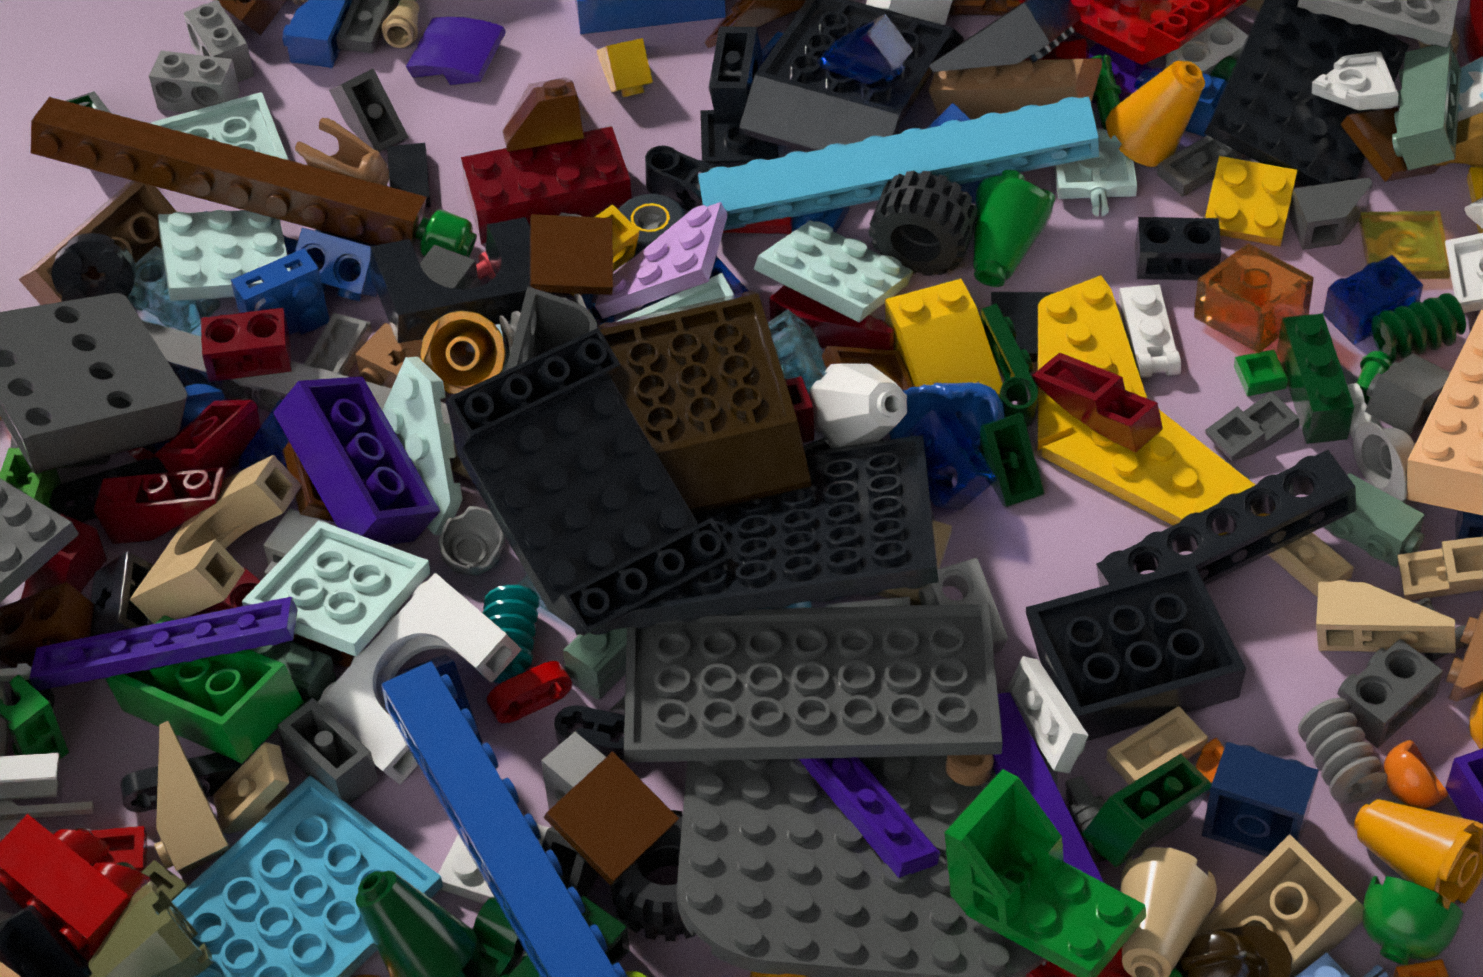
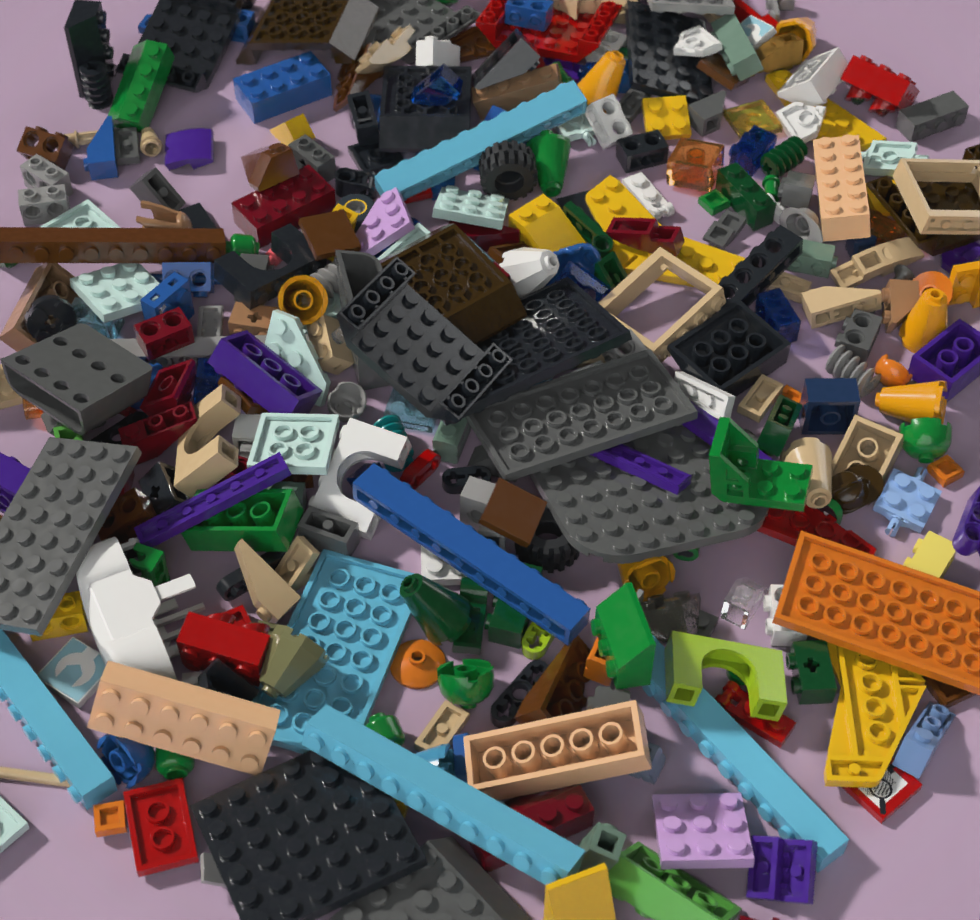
camera: 25 degrees left, 0 degrees up
(631, 117) = (311, 153): none -> dark grey brick
(969, 769) = (679, 433): medium nougat tile -> none
(1039, 481) = (644, 276): none -> tan window
(1129, 181) = (605, 123): none -> white brick
(1259, 611) = (778, 313): none -> clear blue brick

